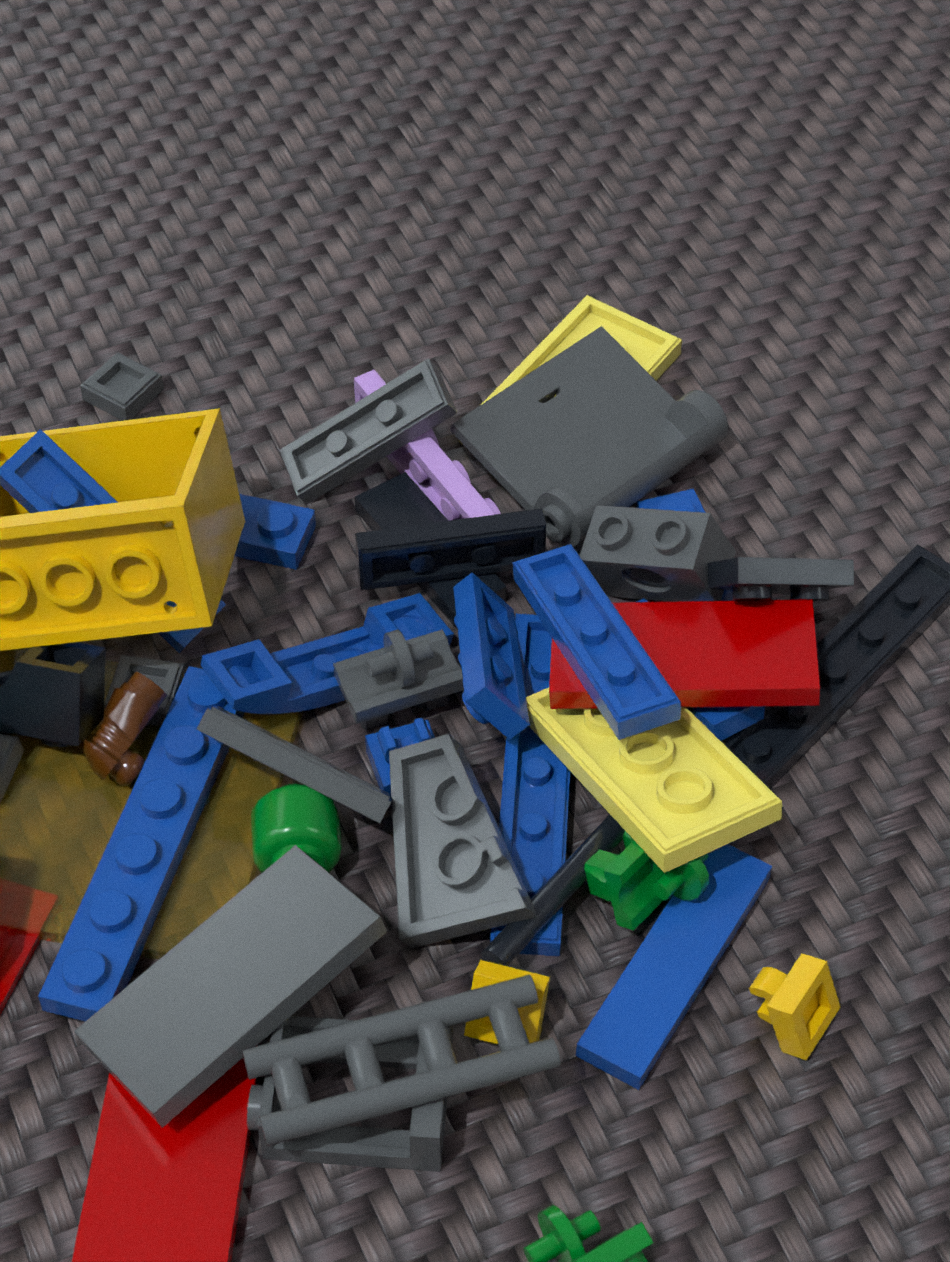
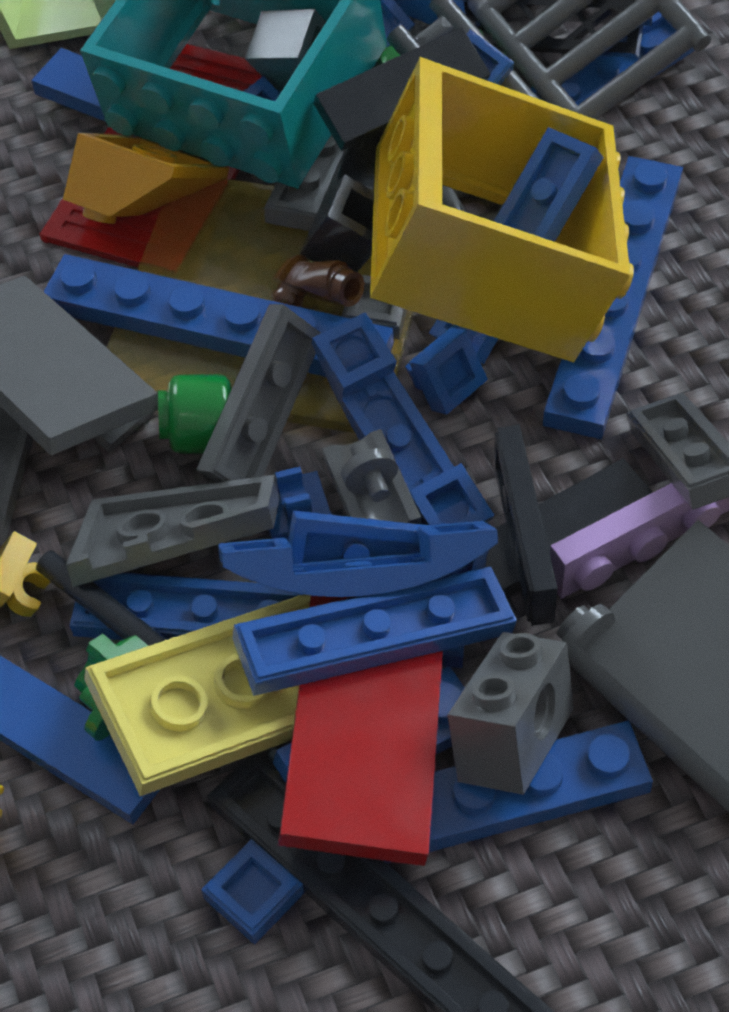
camera: 95 degrees right, 5 degrees up
(240, 626) = (447, 370): none -> blue tile
(531, 638) = (441, 551): none -> blue slope
(761, 577) = (464, 821): black wing -> none
(827, 772) = (253, 891): none -> blue tile

